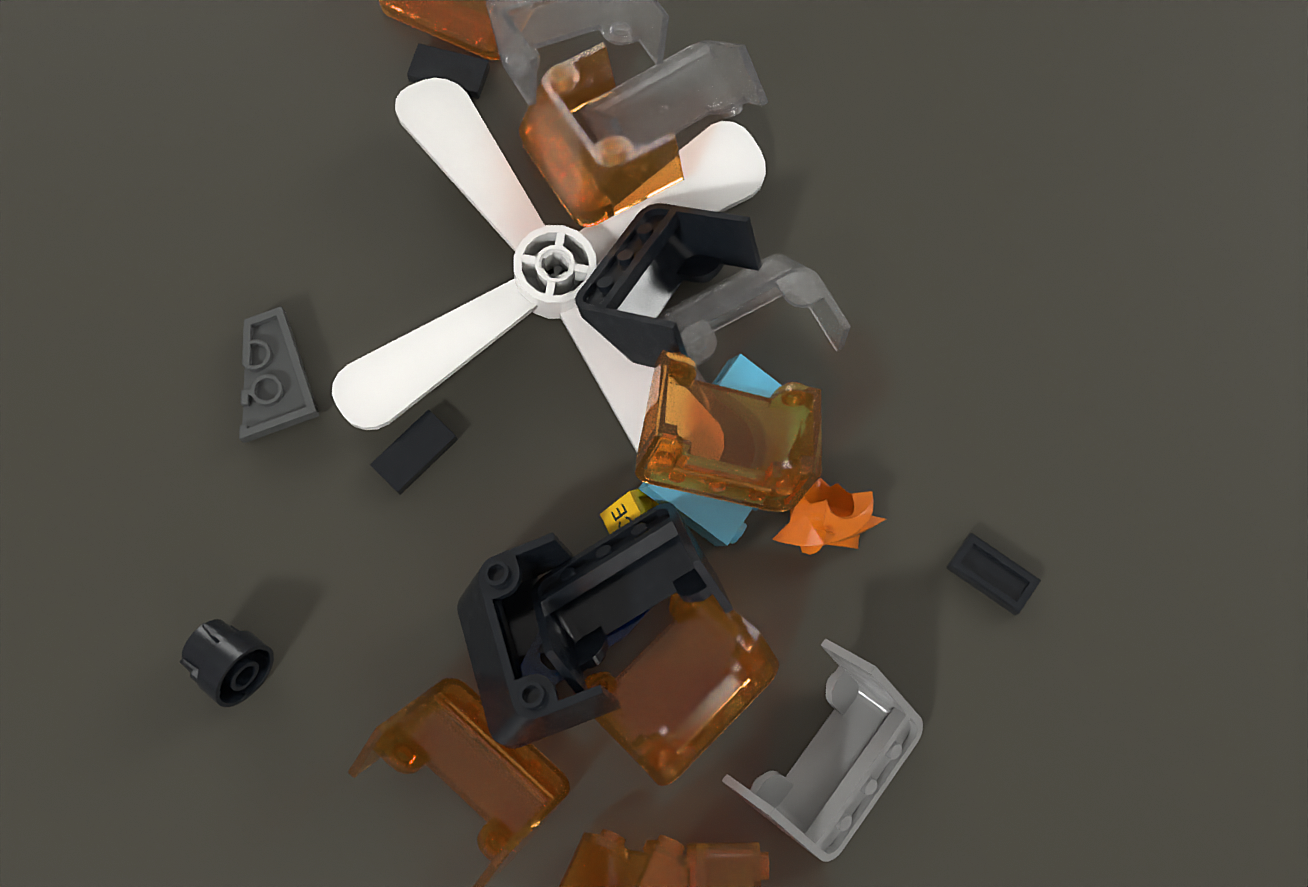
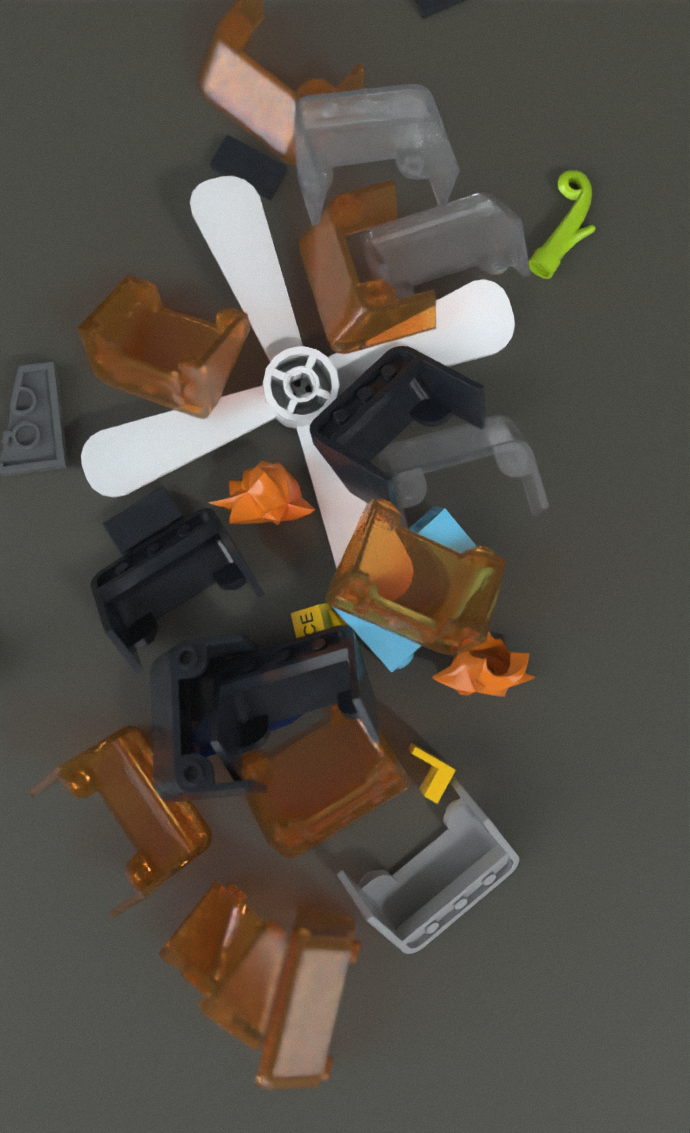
camera: 15 degrees right, 10 degrees up
(397, 272) = (160, 350): none -> clear orange windscreen
(457, 500) = (163, 576): none -> black windscreen
(542, 392) = (264, 496): none -> orange hair
(795, 63) = (567, 234): none -> lime plant
(809, 641) = (438, 775): none -> yellow panel
(993, 574) = (615, 747): black tile -> none

